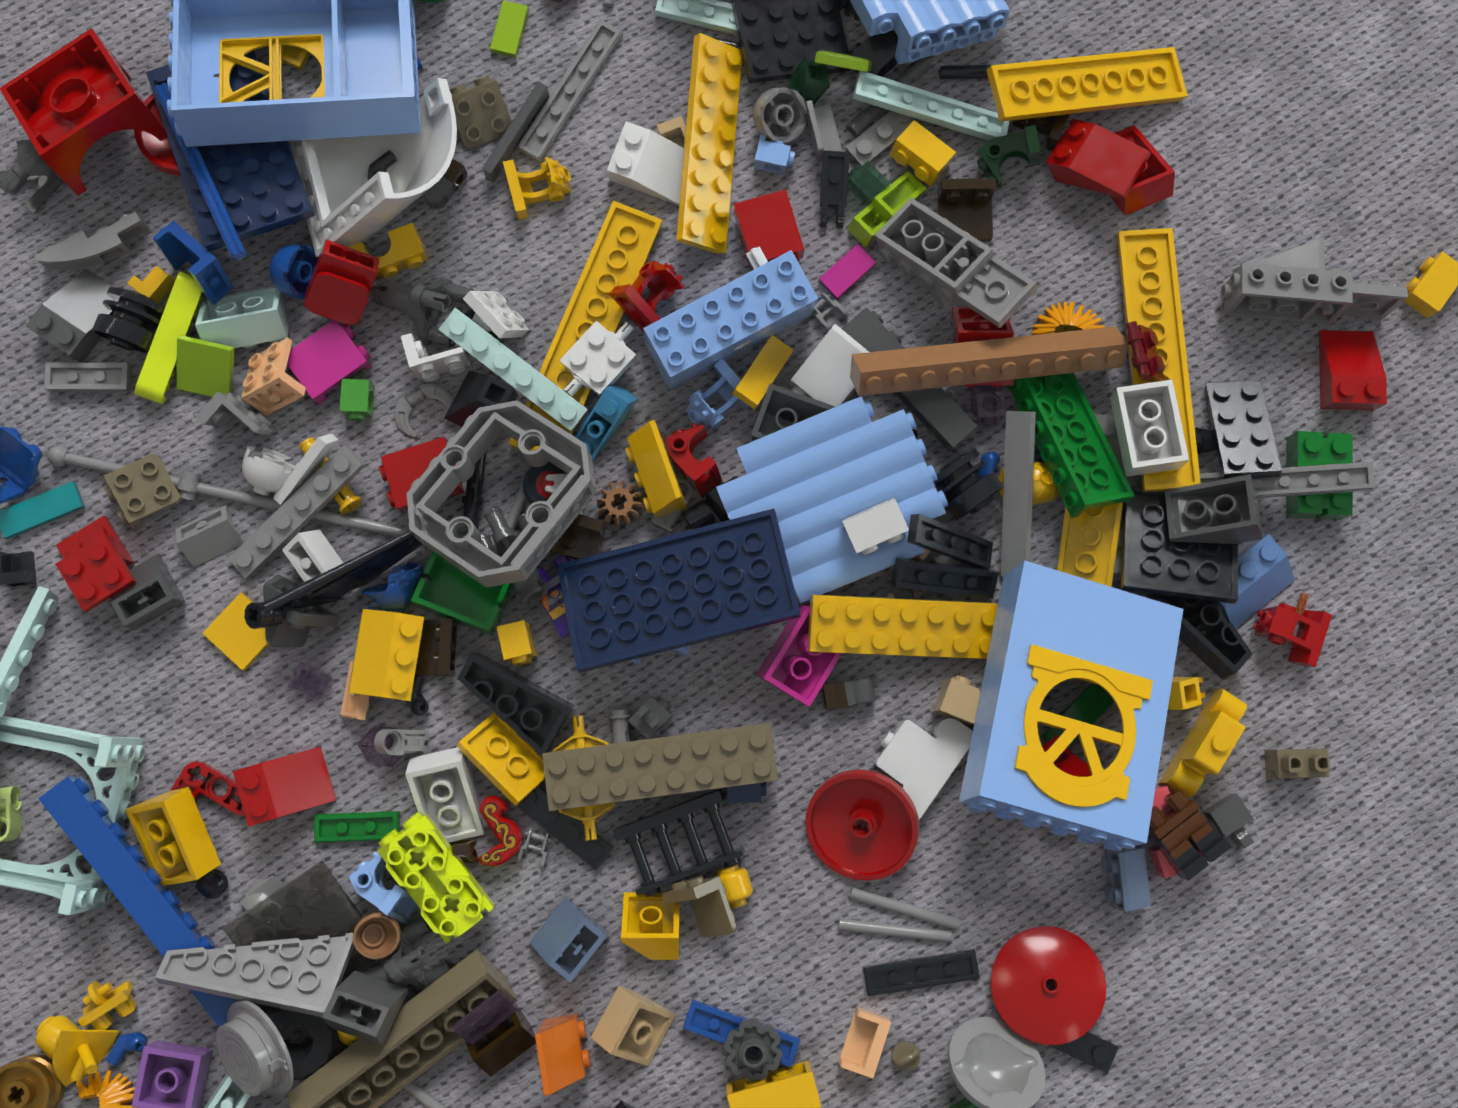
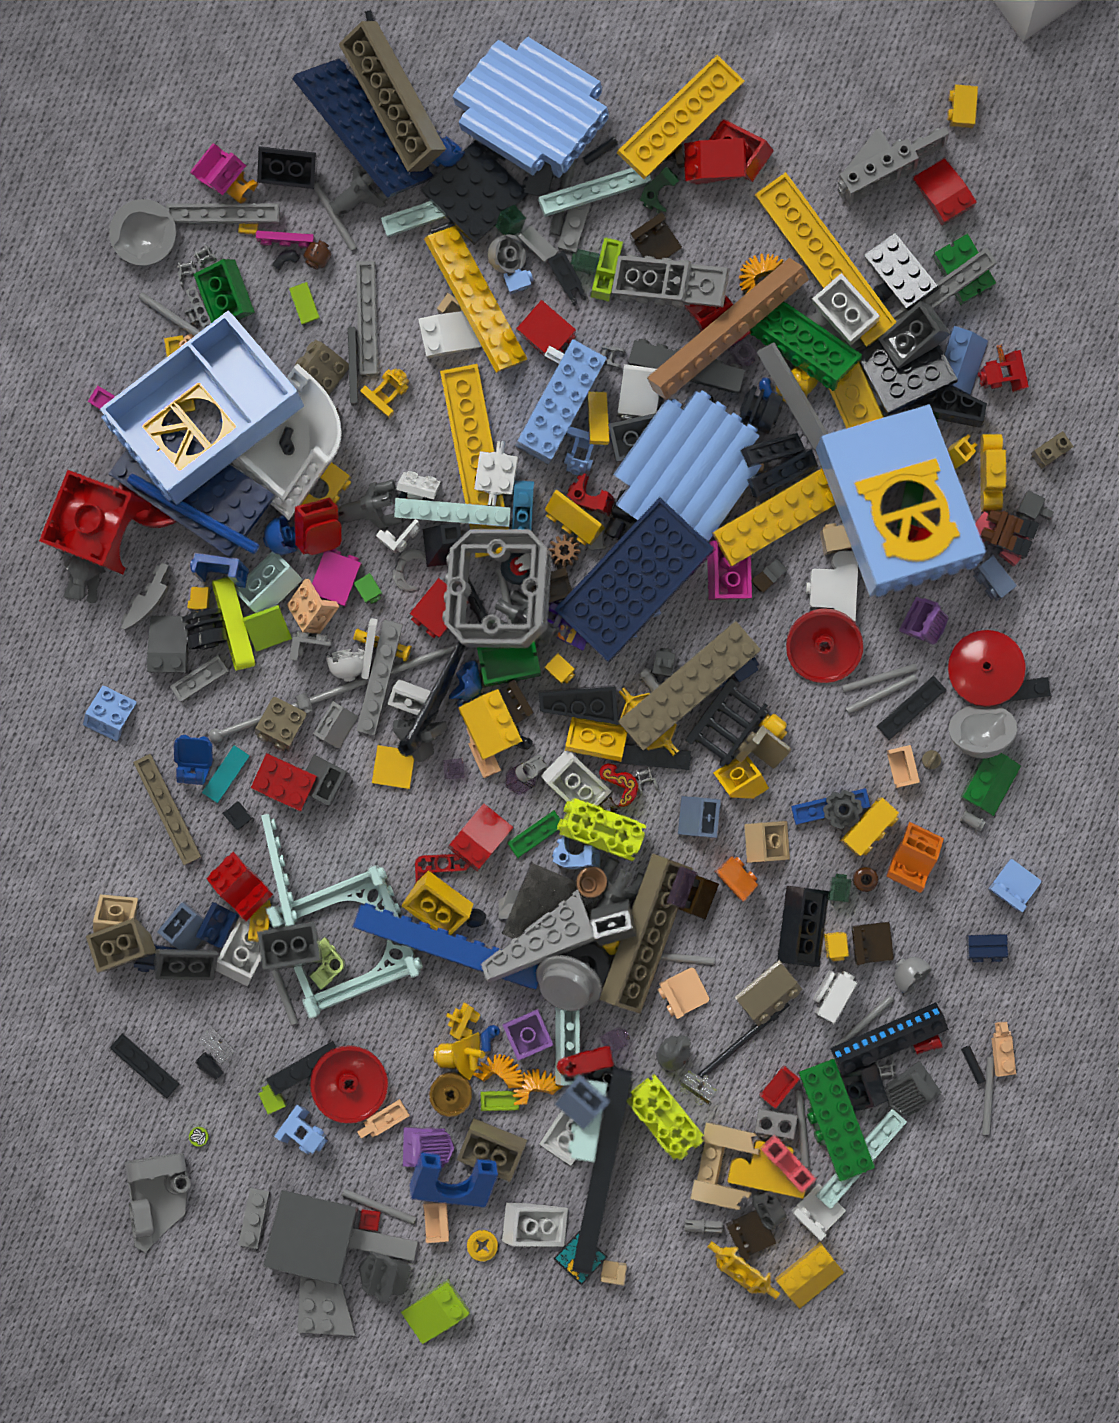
camera: 25 degrees left, 5 degrees up
(662, 284) = (503, 404): red tile -> none
(843, 60) = (525, 197): lime tile -> none
(847, 271) = (607, 323): dark pink tile -> none
(875, 526) = (724, 470): white brick -> none
(922, 152) = (606, 221): yellow brick -> none
(1006, 874) = (924, 621): none -> medium lavender piece
(1145, 353) = (816, 264): dark red plate -> none

